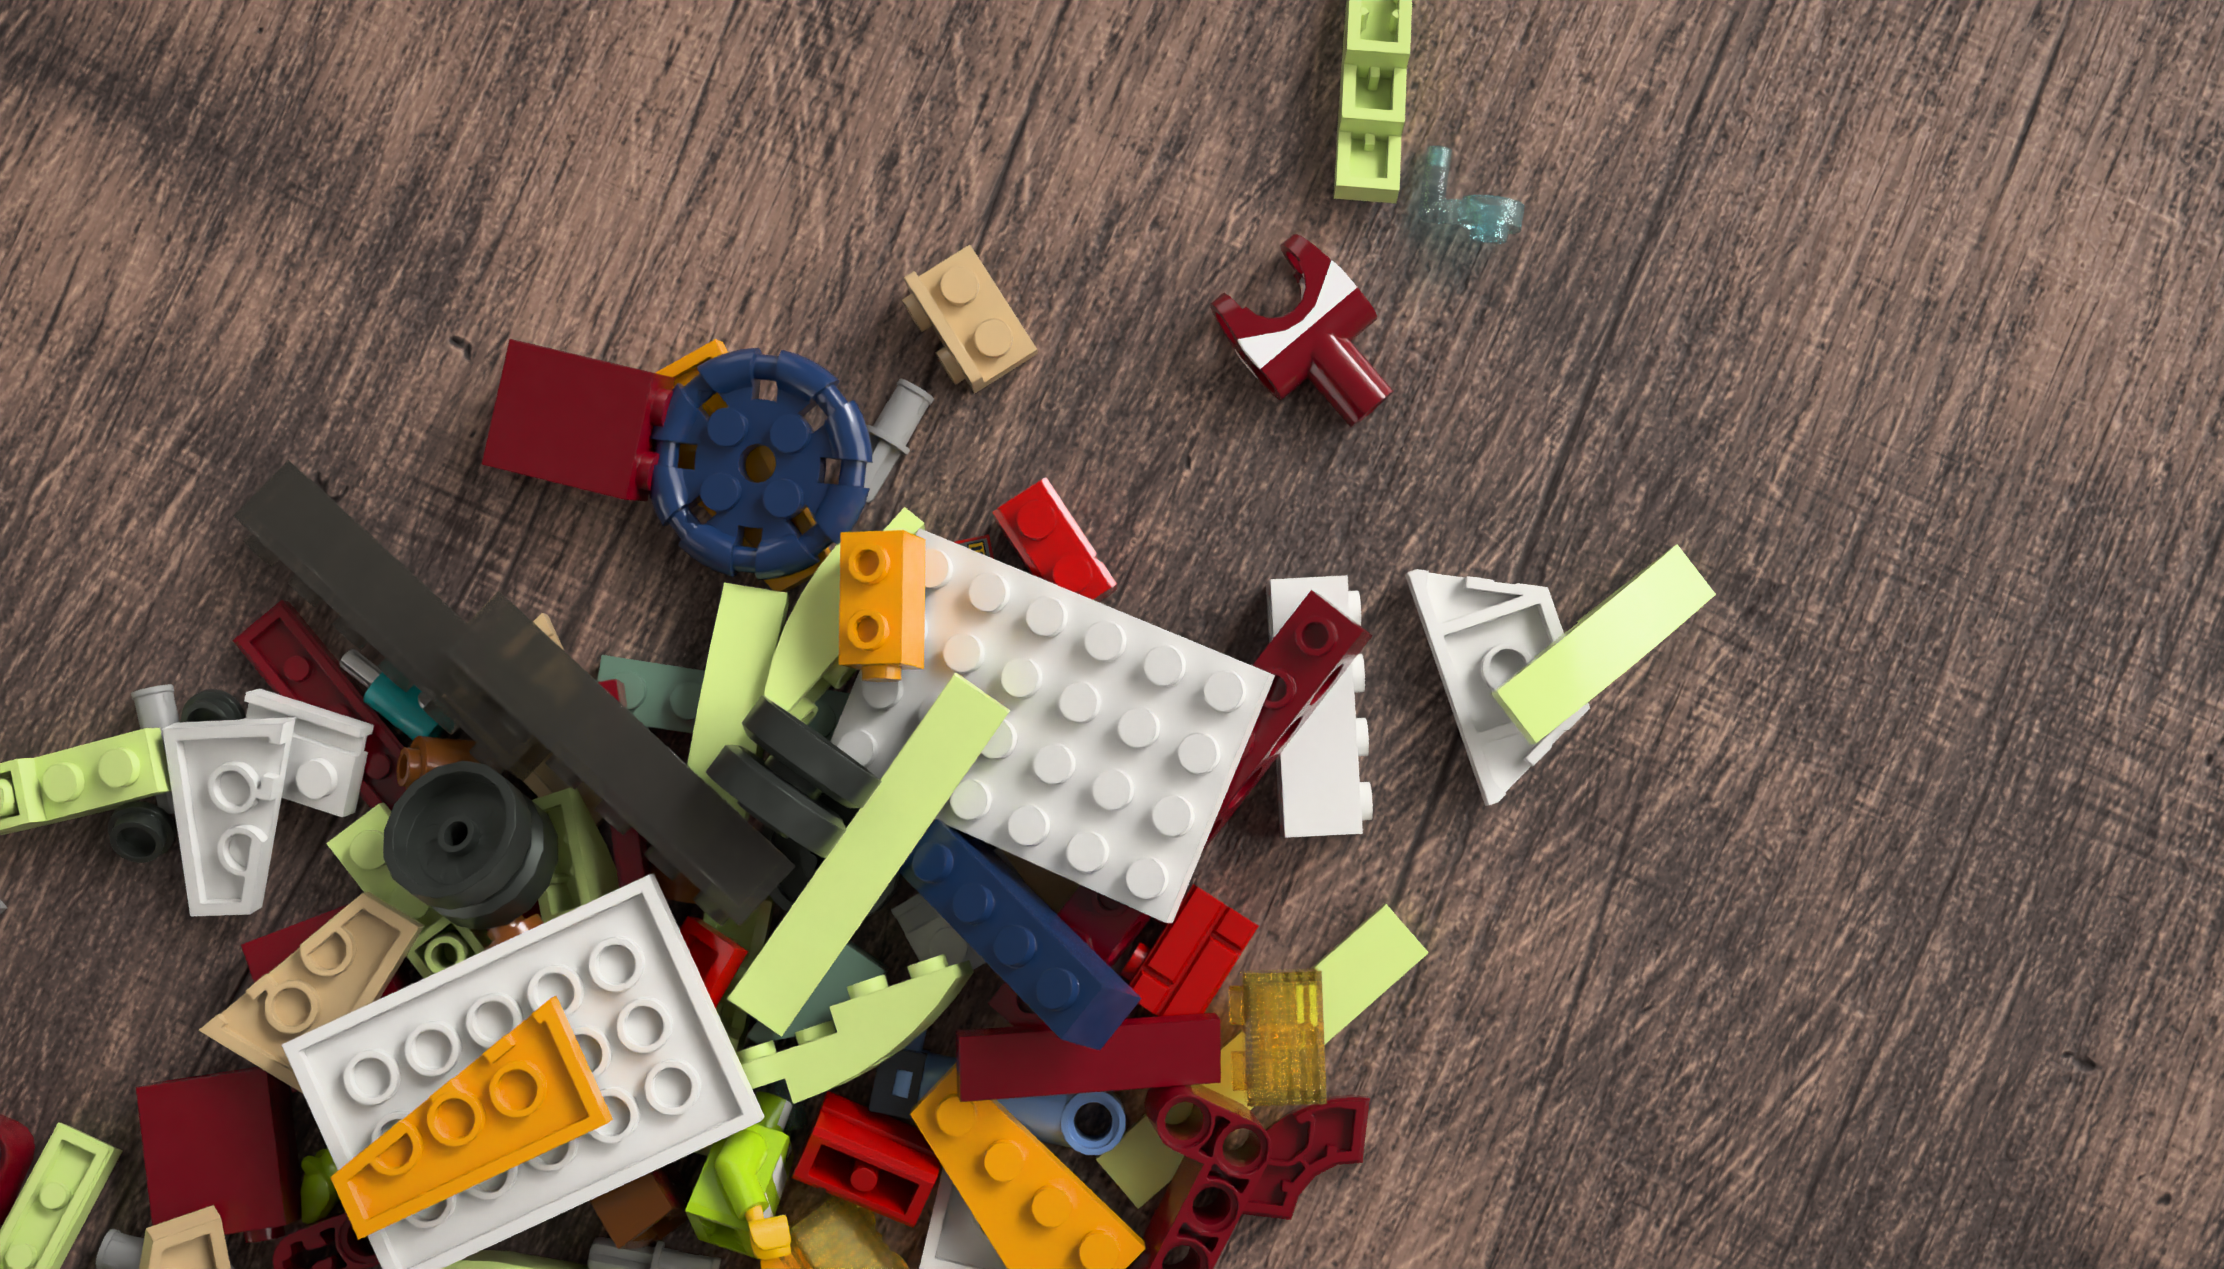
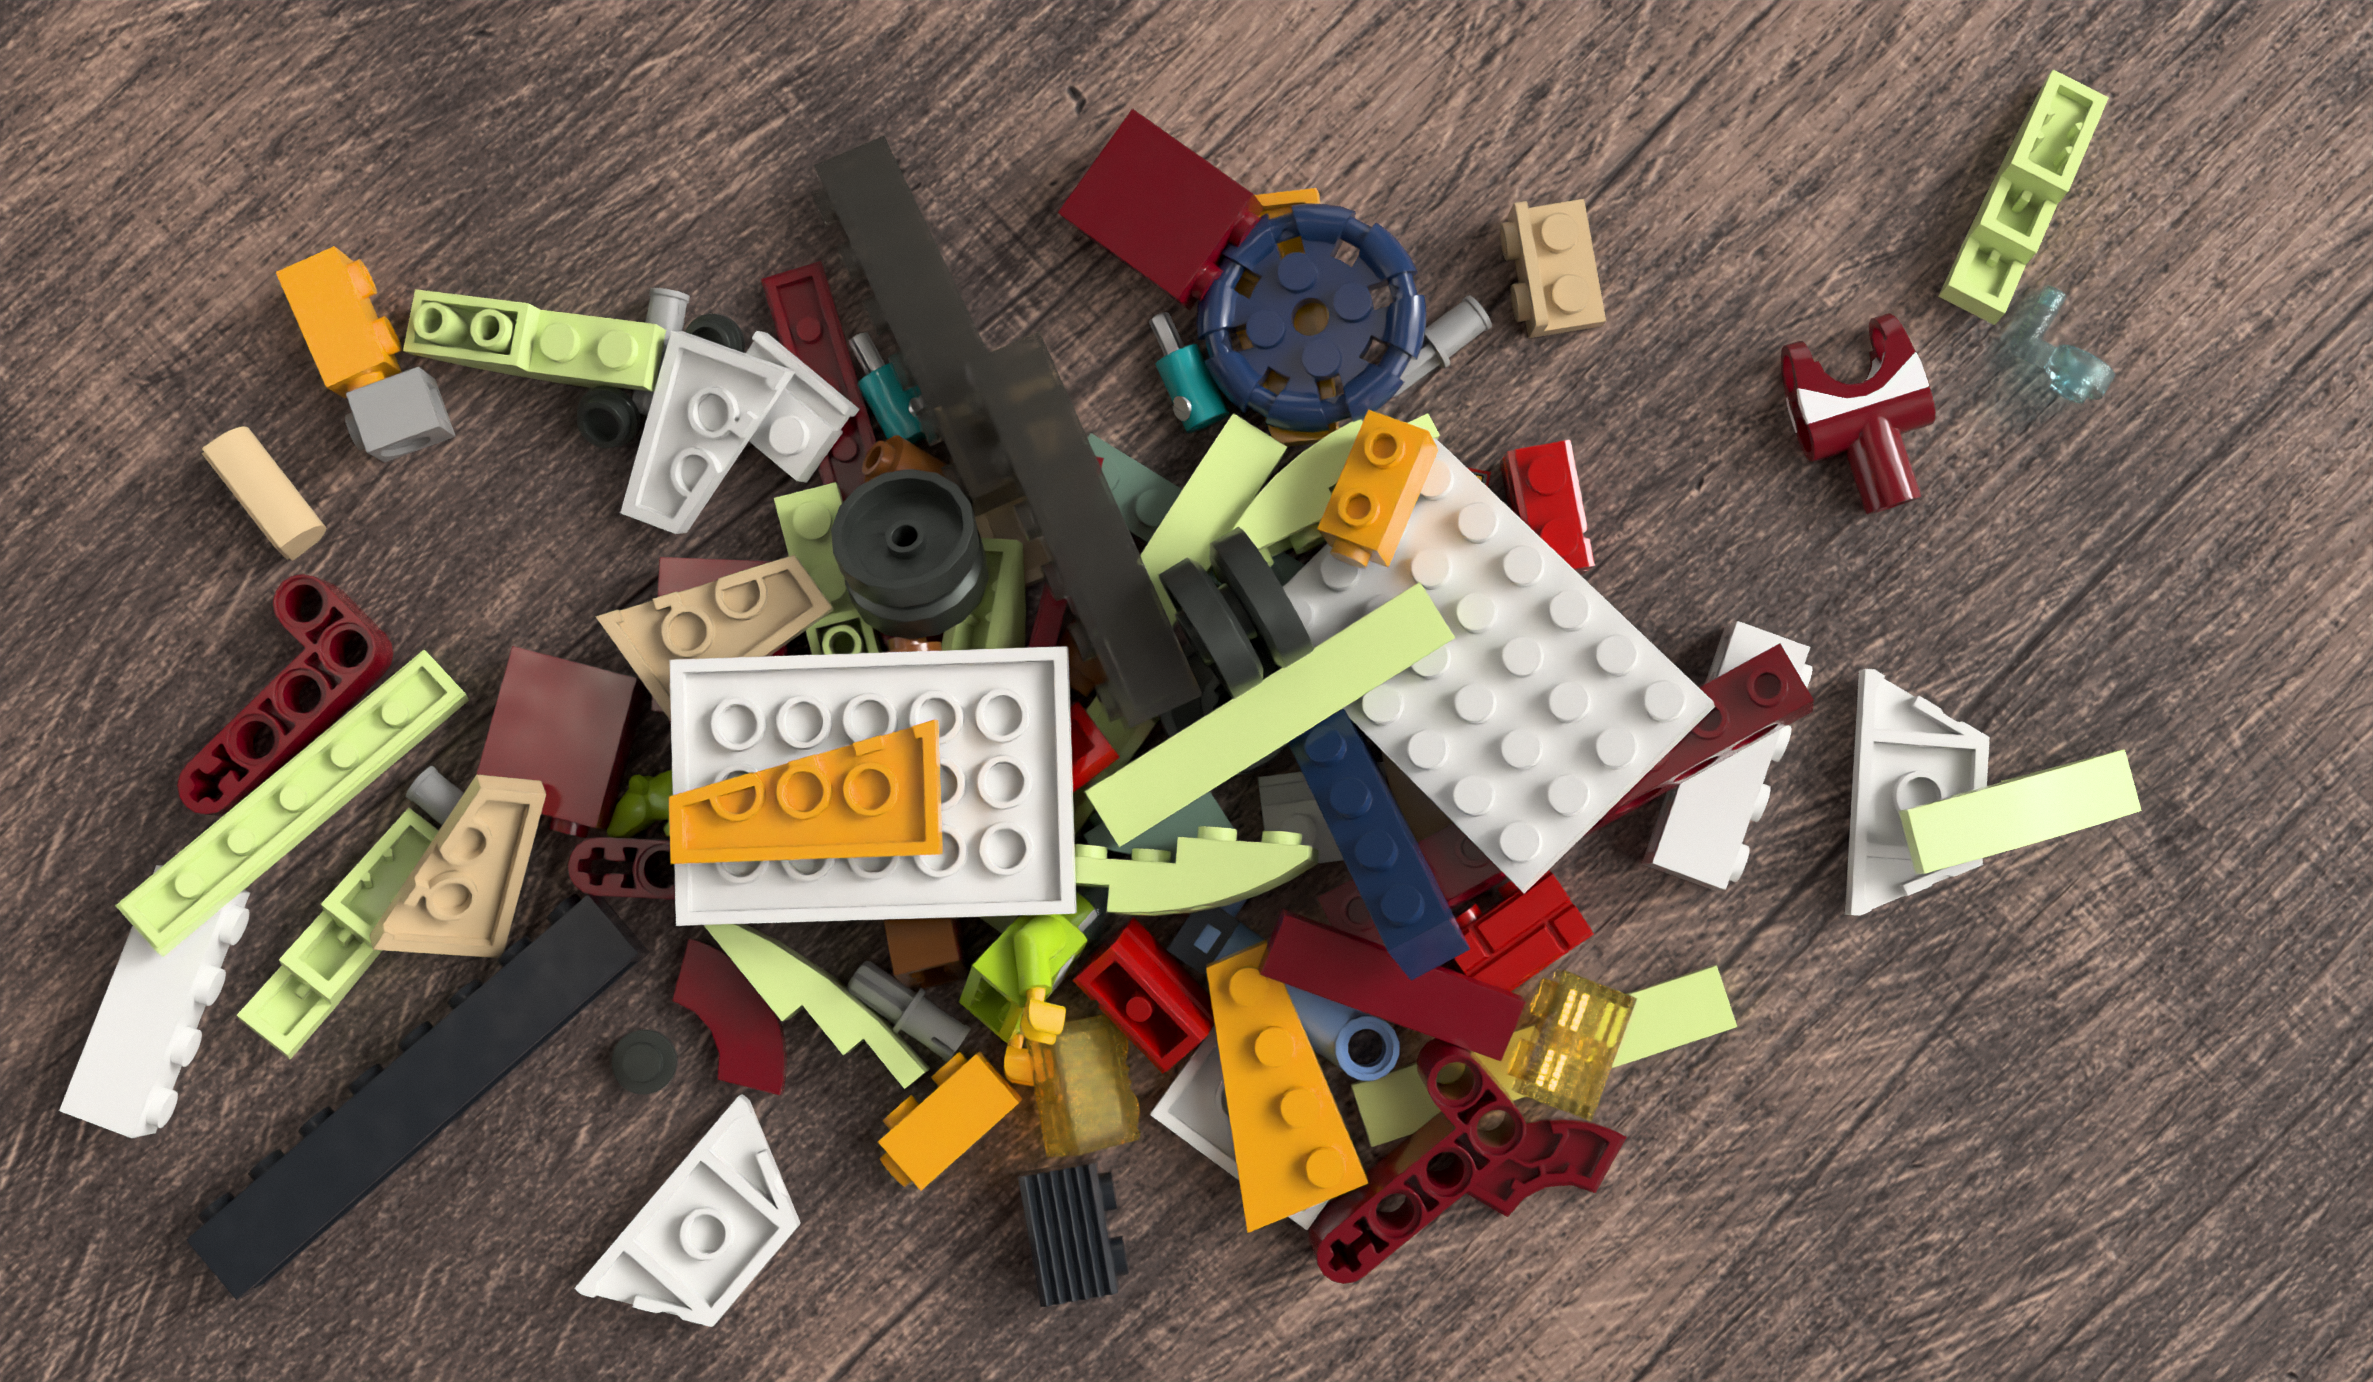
camera: 25 degrees right, 0 degrees up
(670, 567) = (1187, 378): none -> teal piece

